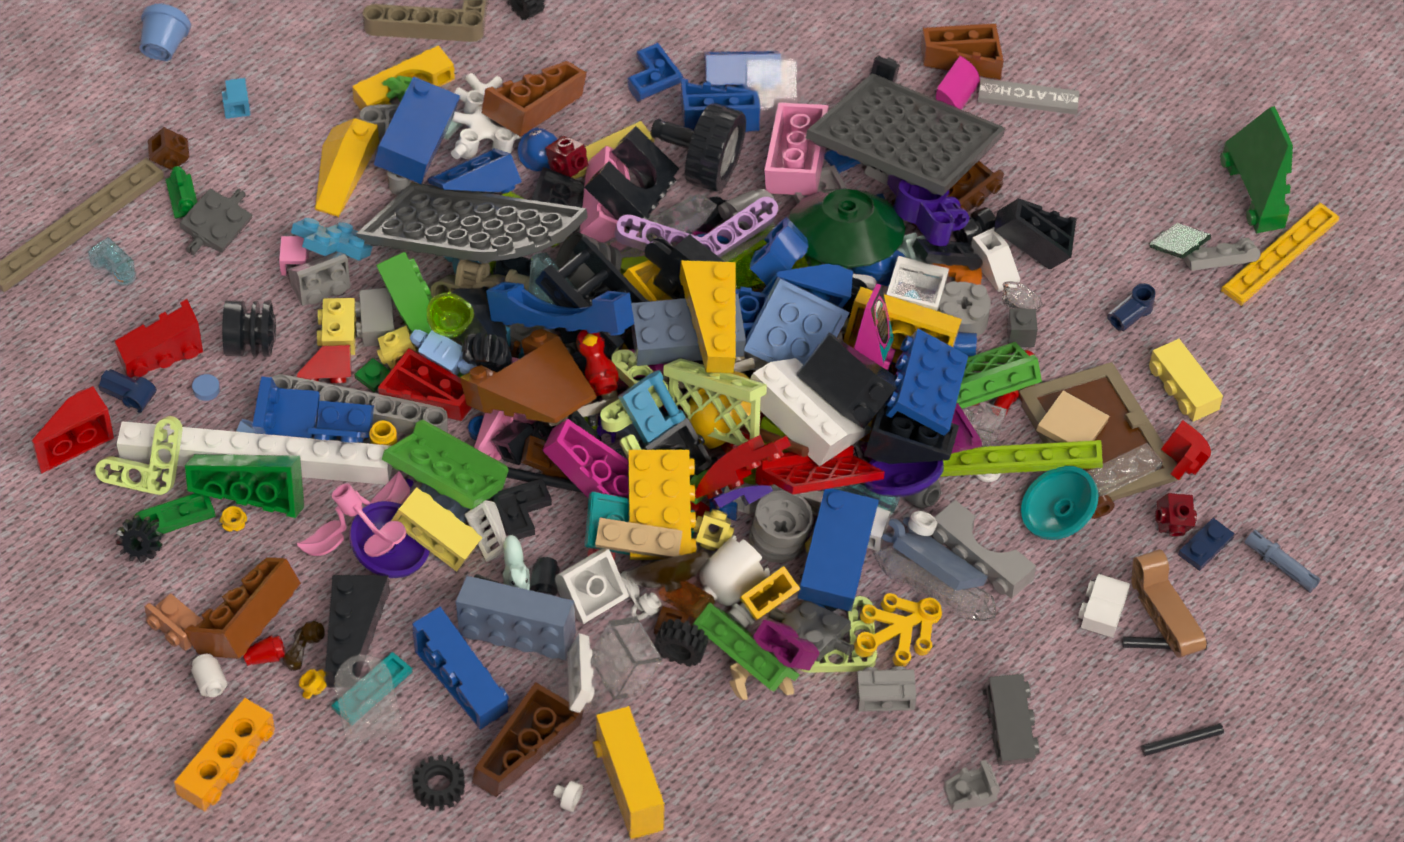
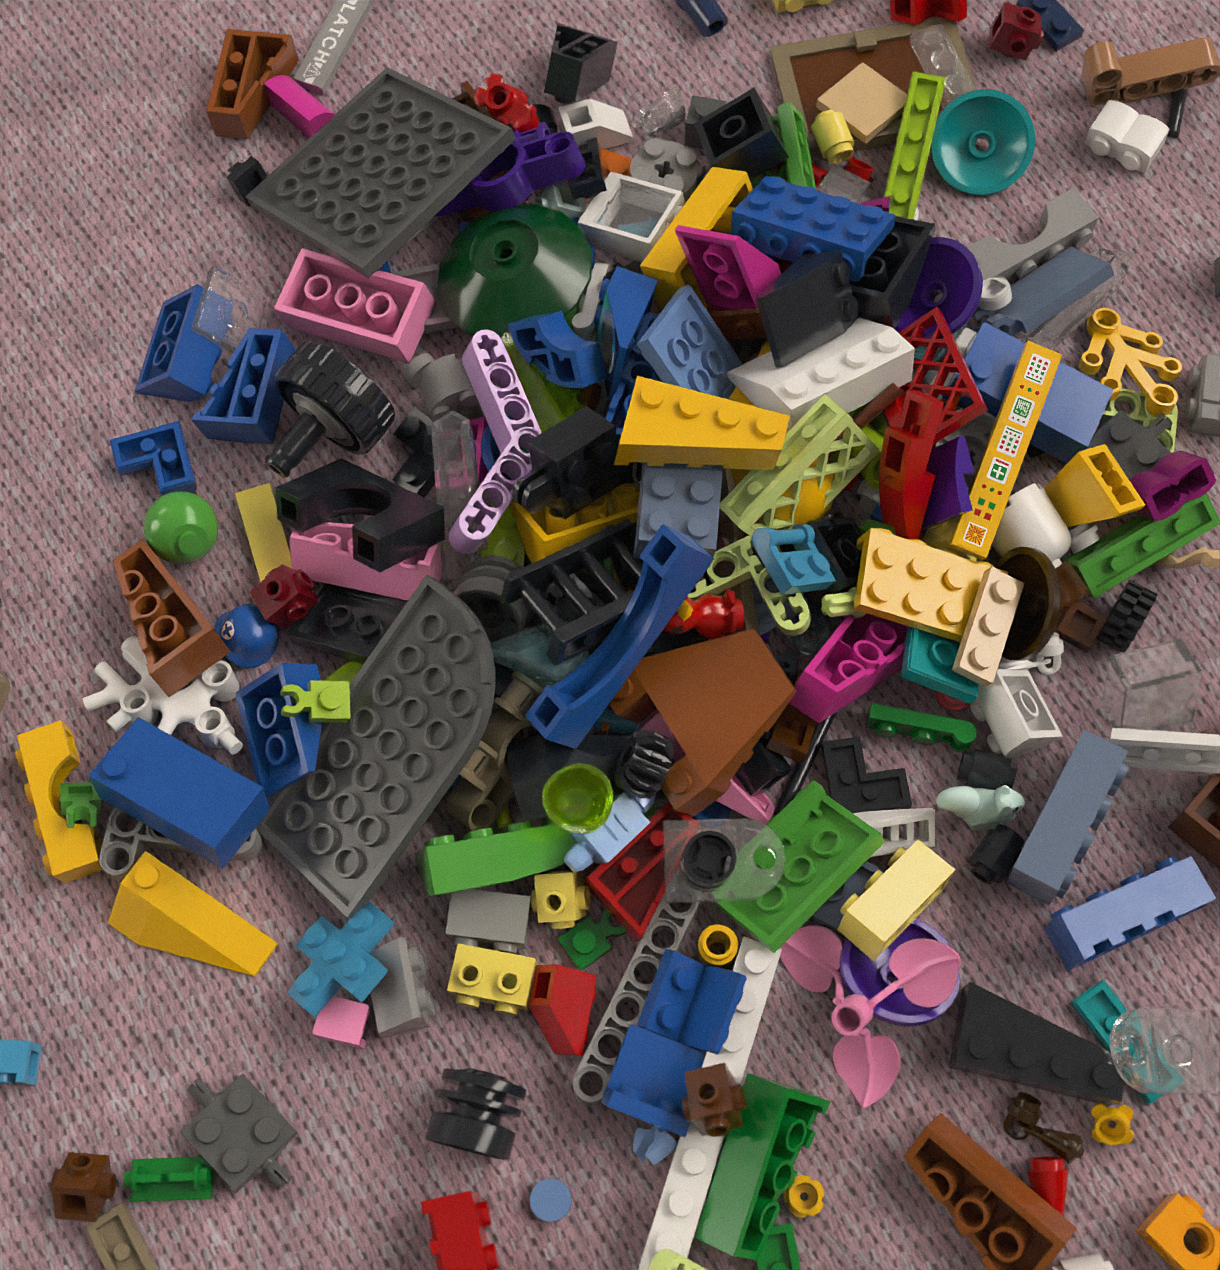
camera: 70 degrees left, 15 degrees up
(276, 432) = (713, 1100): none -> reddish brown brick
(427, 397) = (707, 861): none -> black wheel
(437, 415) = (745, 881): none -> clear tile
(490, 182) = (324, 701): none -> lime plate
(567, 536) = (922, 727): none -> green plate
(602, 93) = (180, 527): none -> bright green brick
(777, 527) = (1005, 449): none -> yellow tile
(985, 194) = (507, 104): none -> red animal
(996, 337) = (742, 136): none -> black brick
(1012, 432) = (859, 169): none -> red plate
(1031, 404) = (833, 136): none -> light yellow brick

